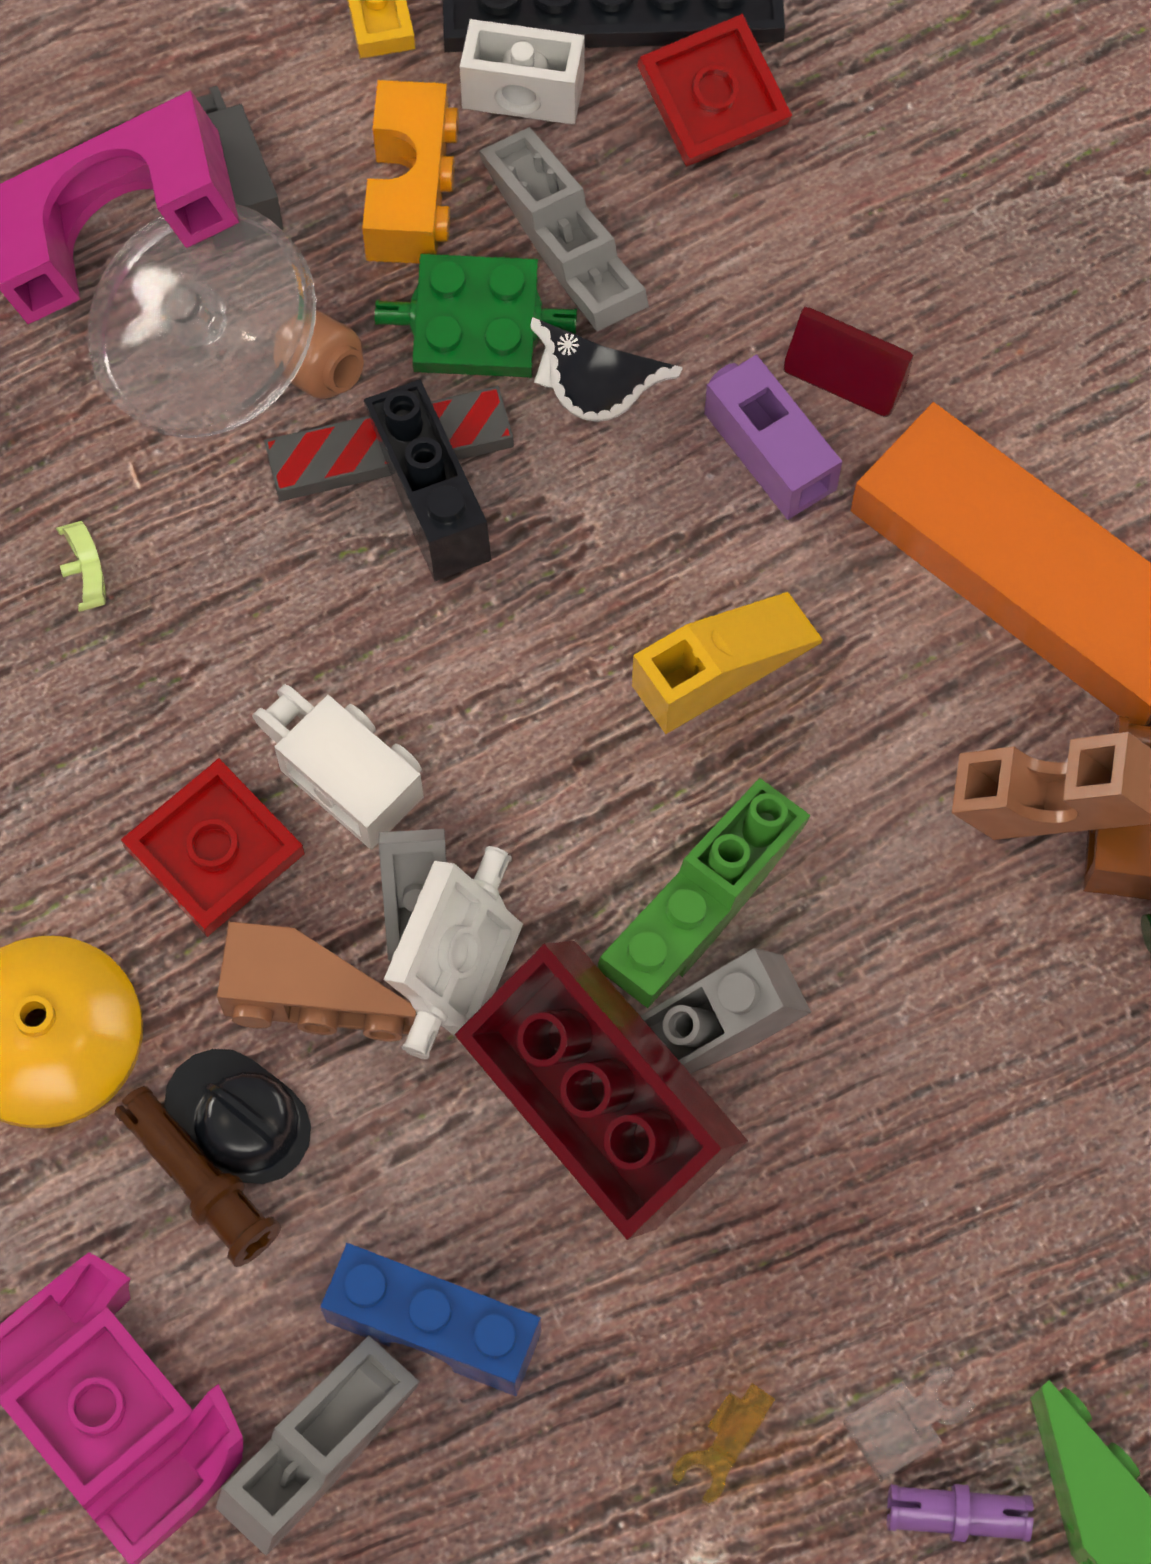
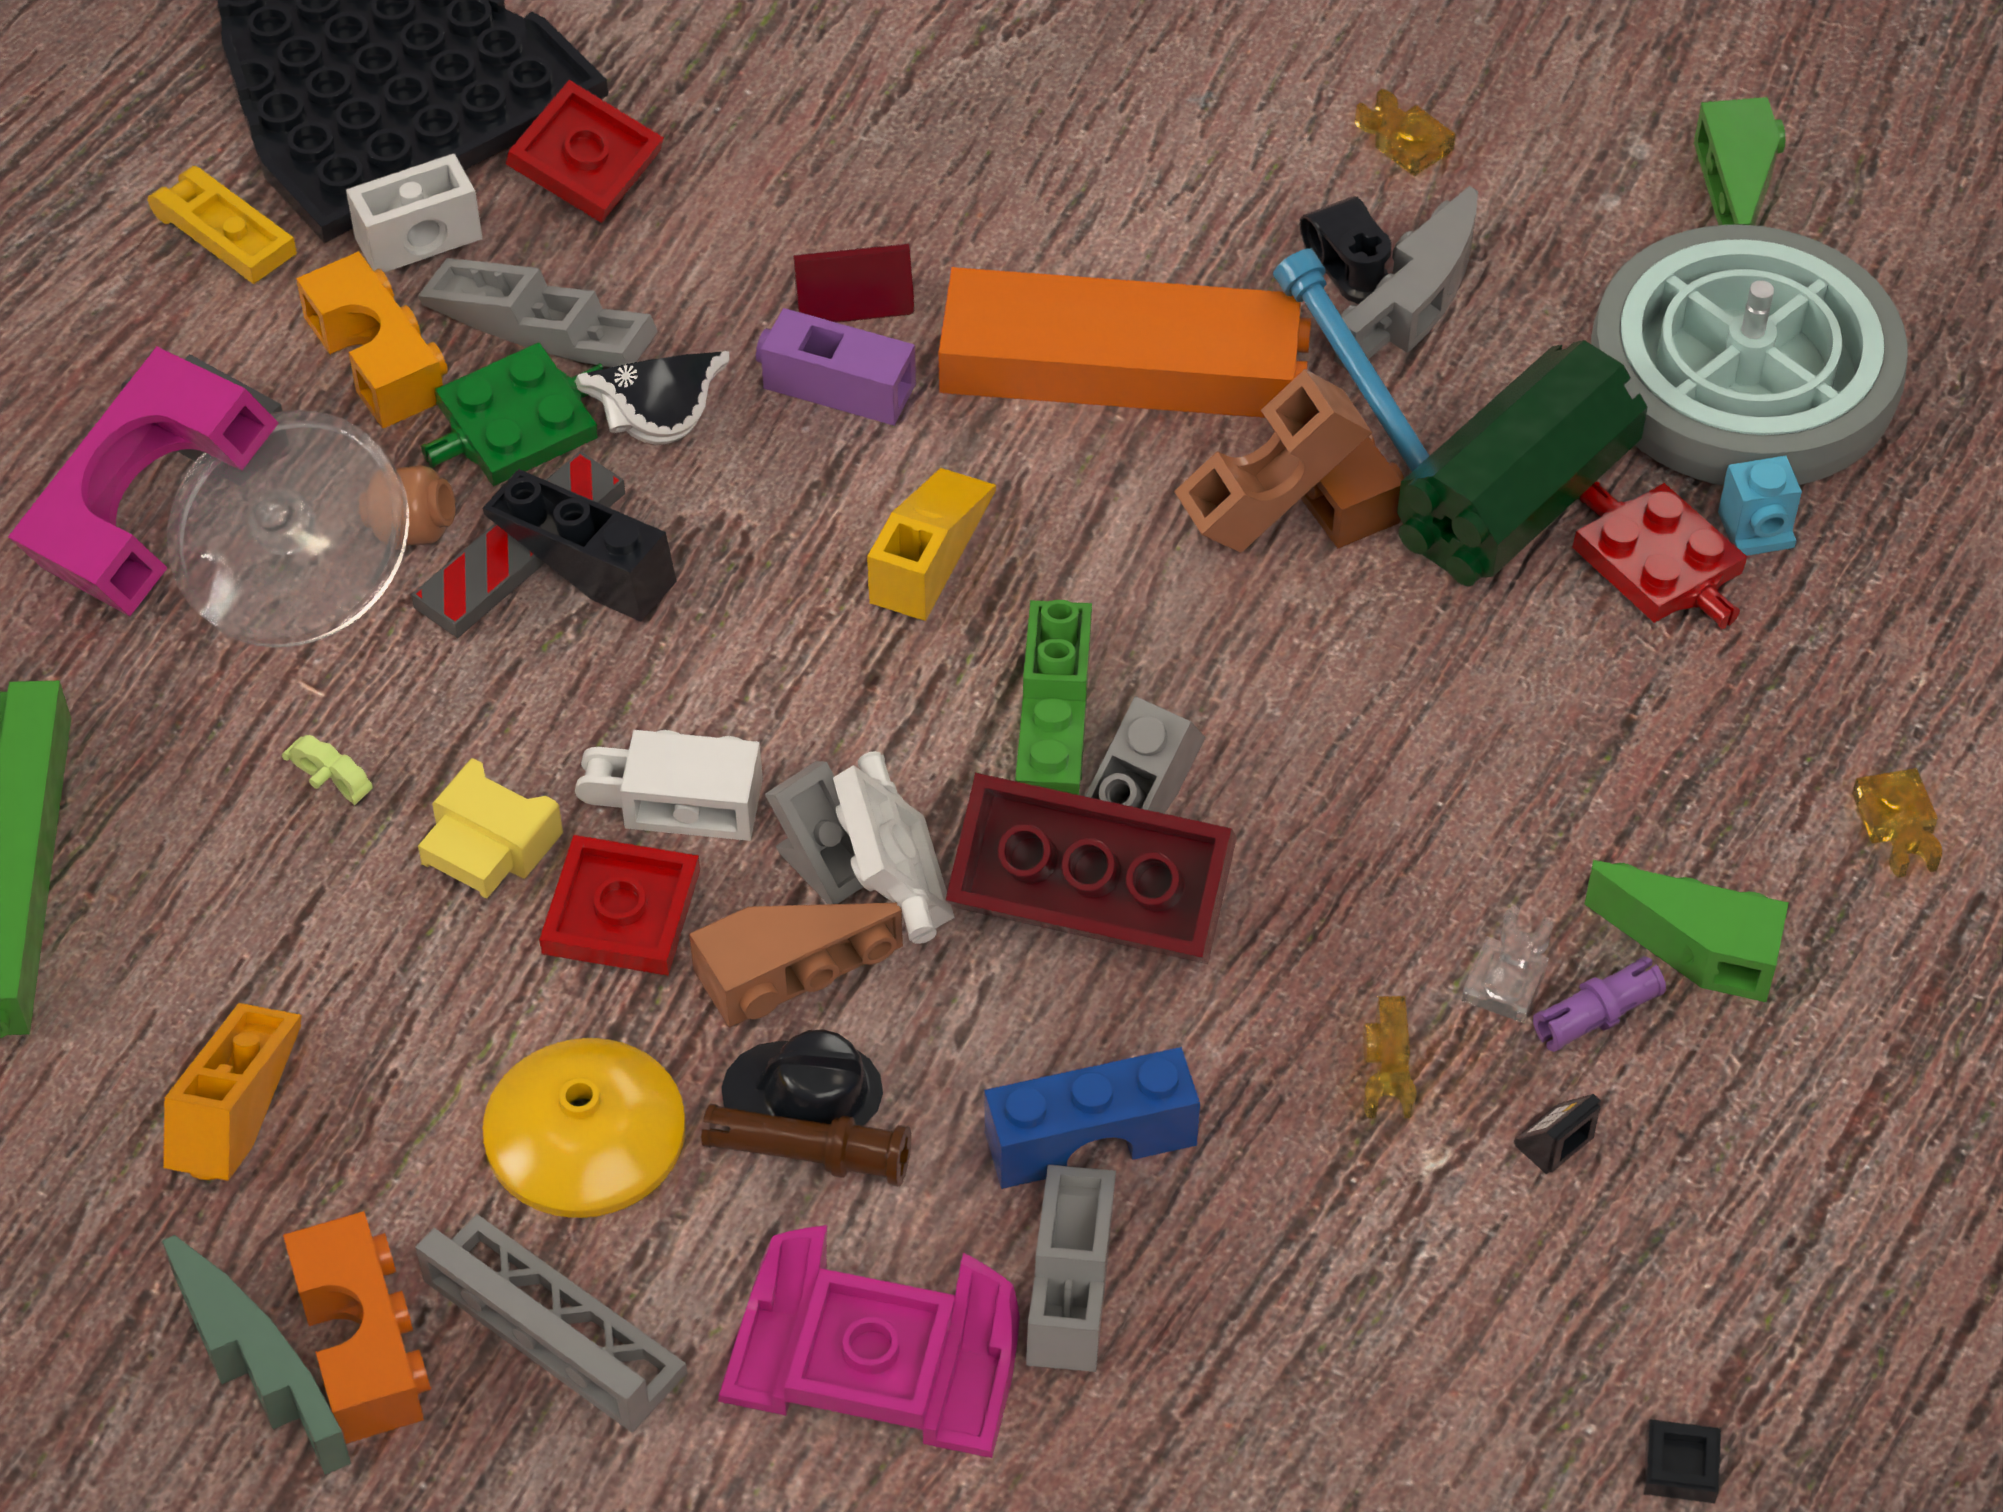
camera: 35 degrees left, 15 degrees down
(157, 707) = (488, 831): none -> light yellow piece

